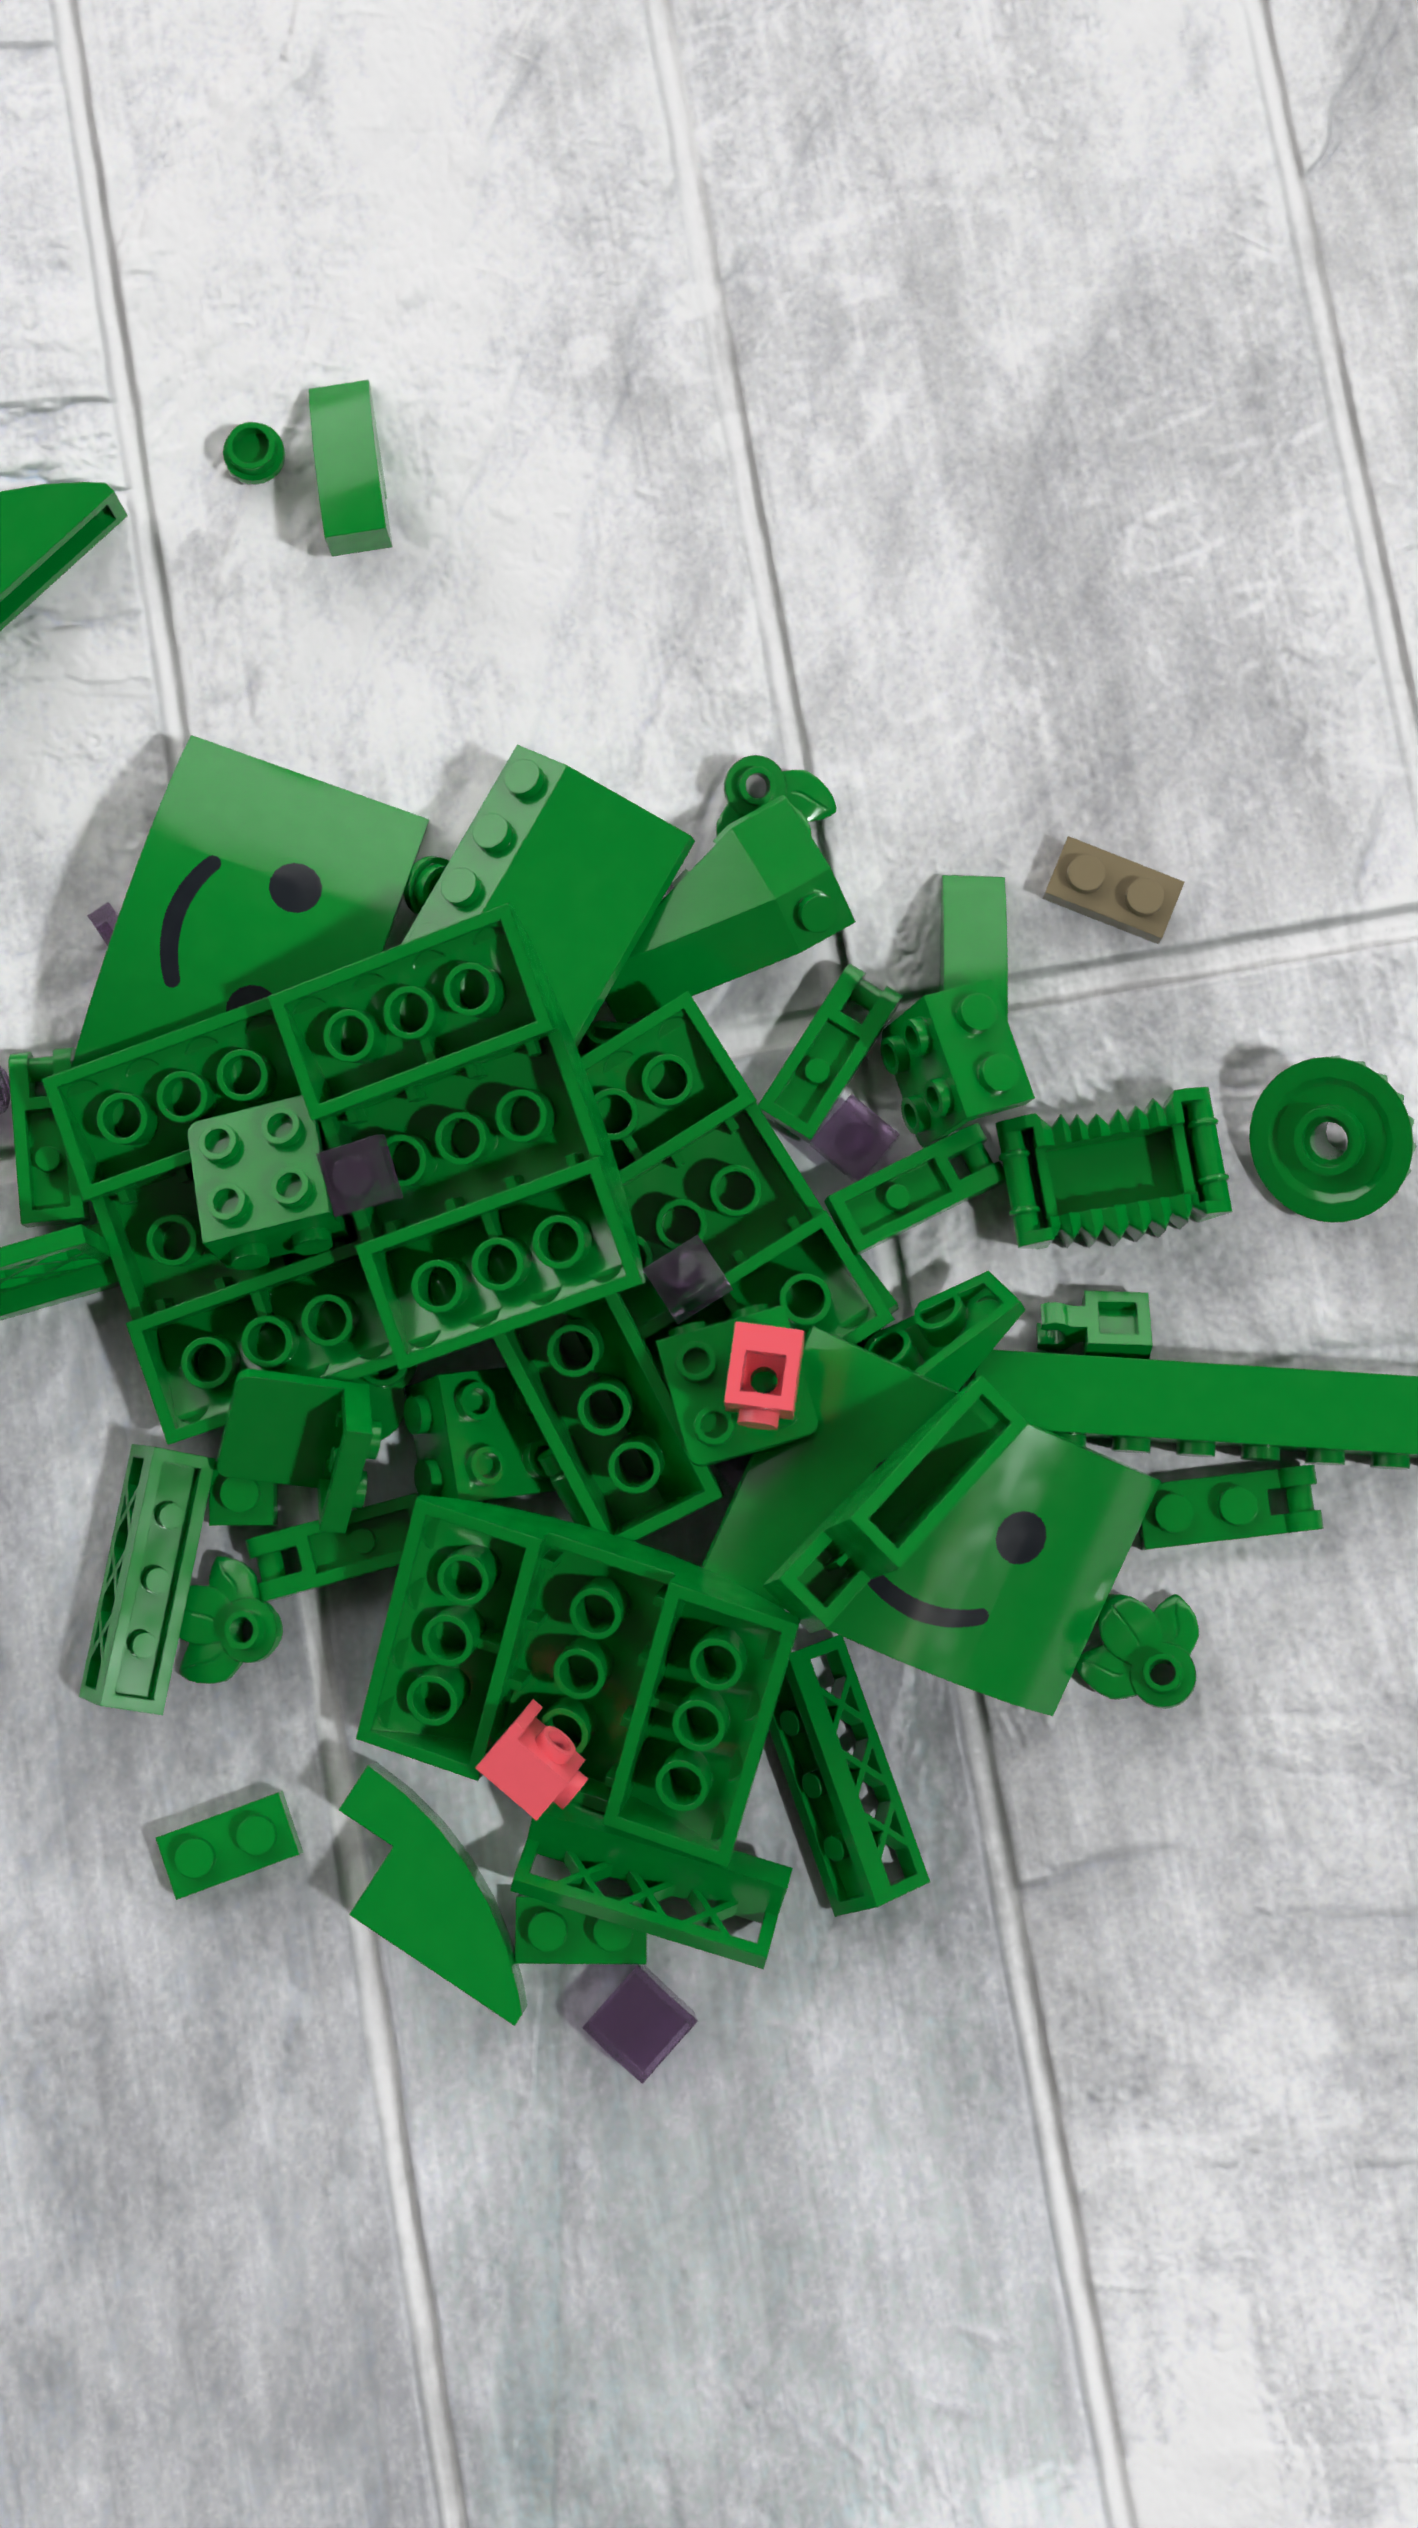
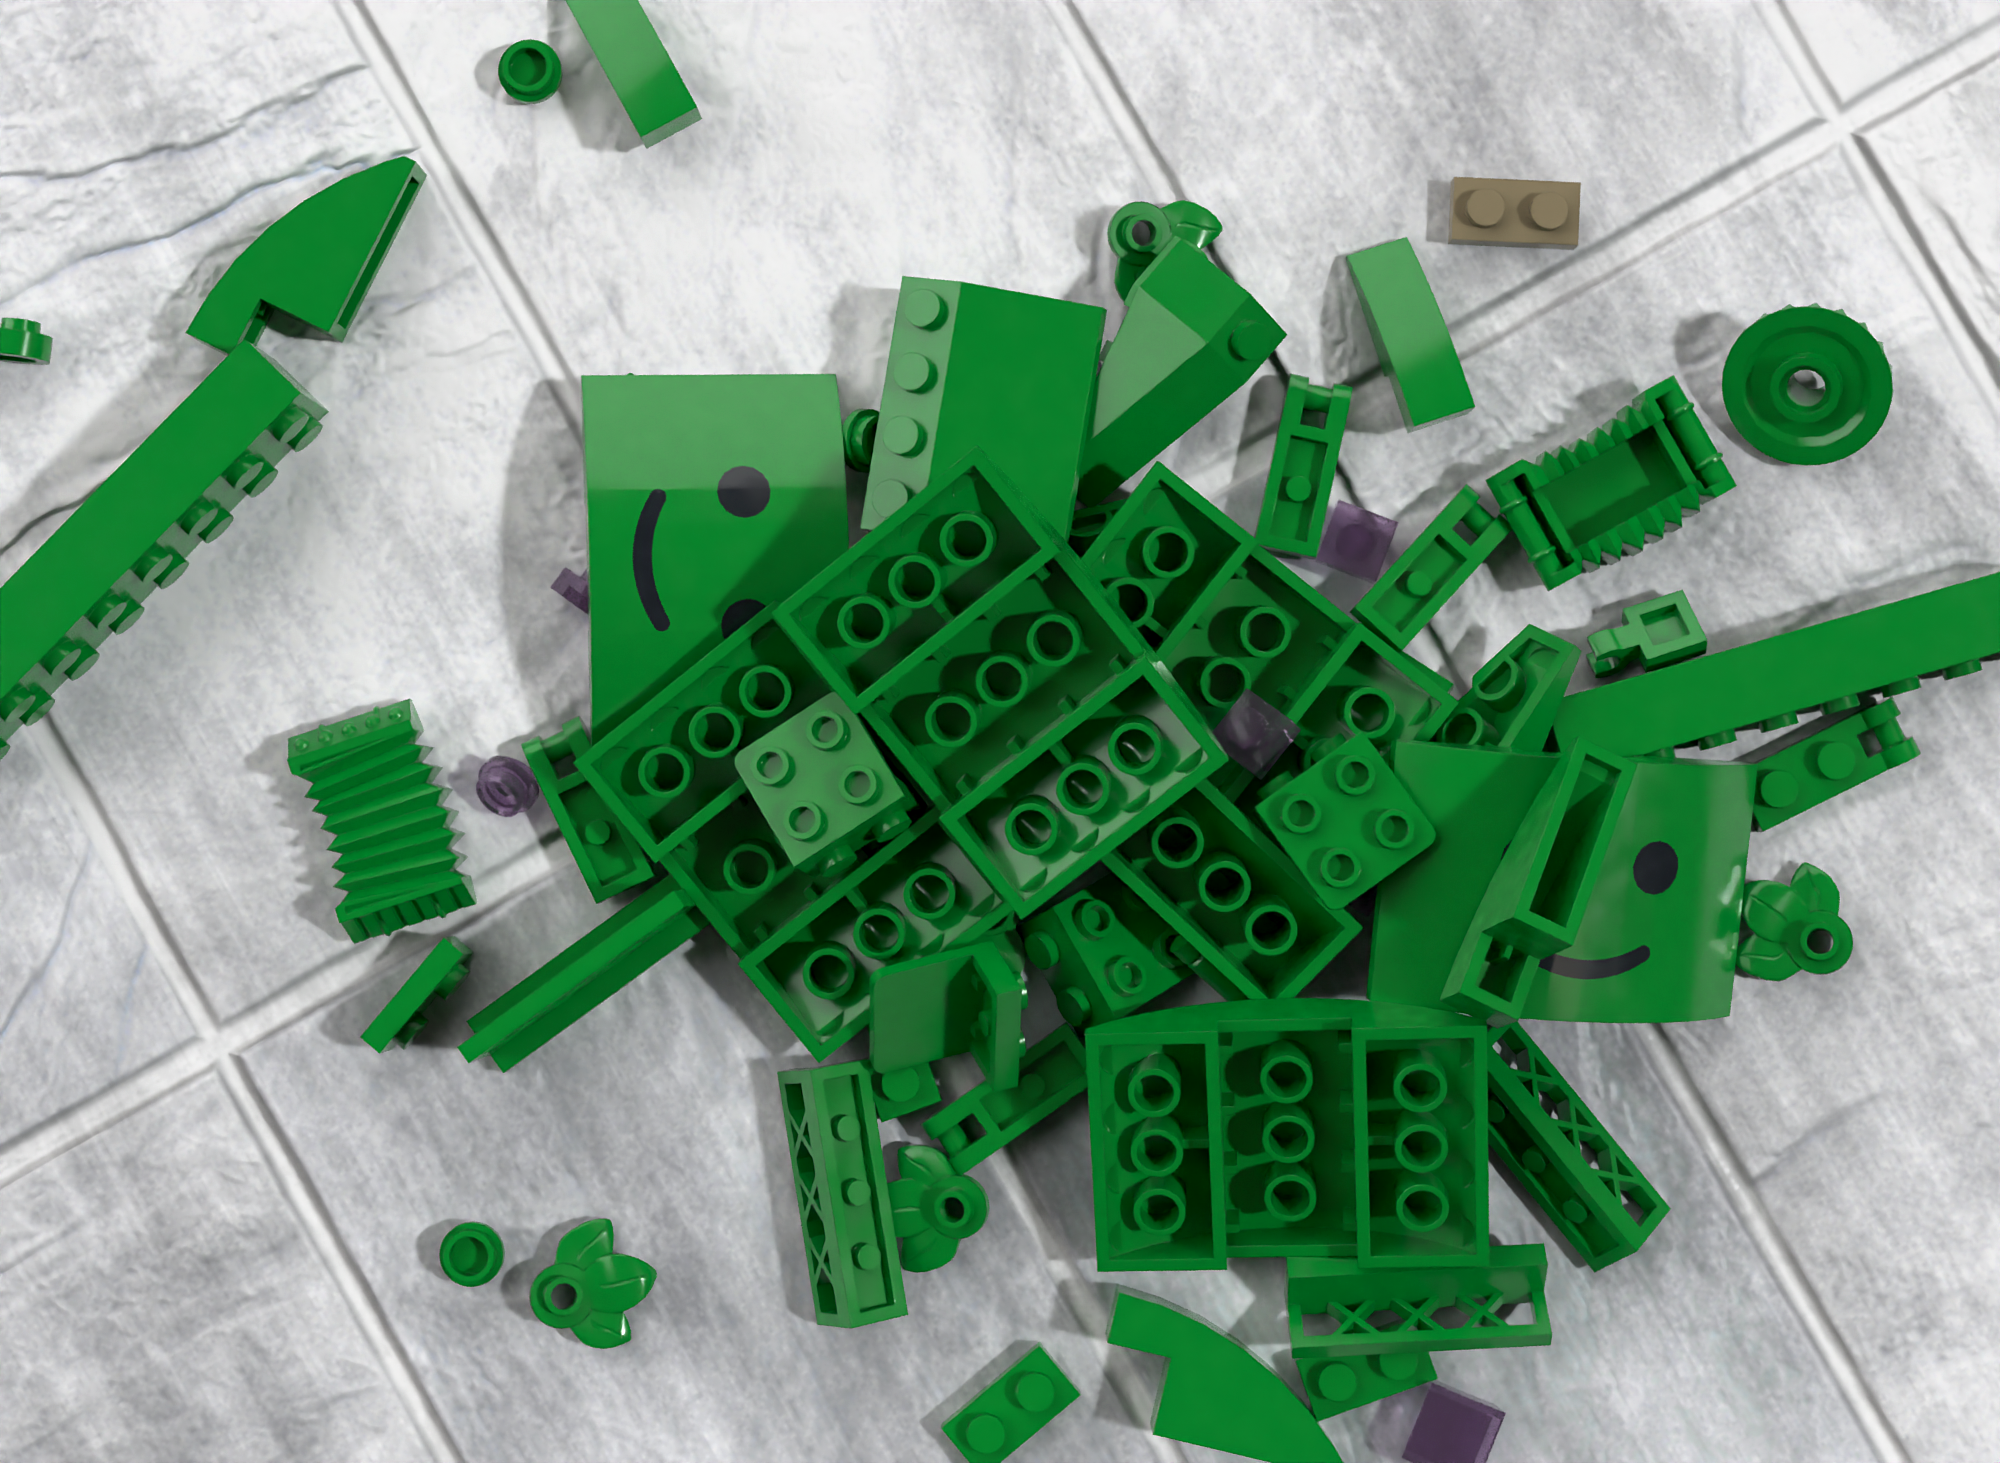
camera: 25 degrees left, 5 degrees up
(359, 1175) = (918, 750): plate -> none
(534, 1764) = (1276, 1236): coral brick -> none
(759, 1350) = (1379, 781): coral brick -> none
(954, 1060) = (1429, 437): green bracket -> none

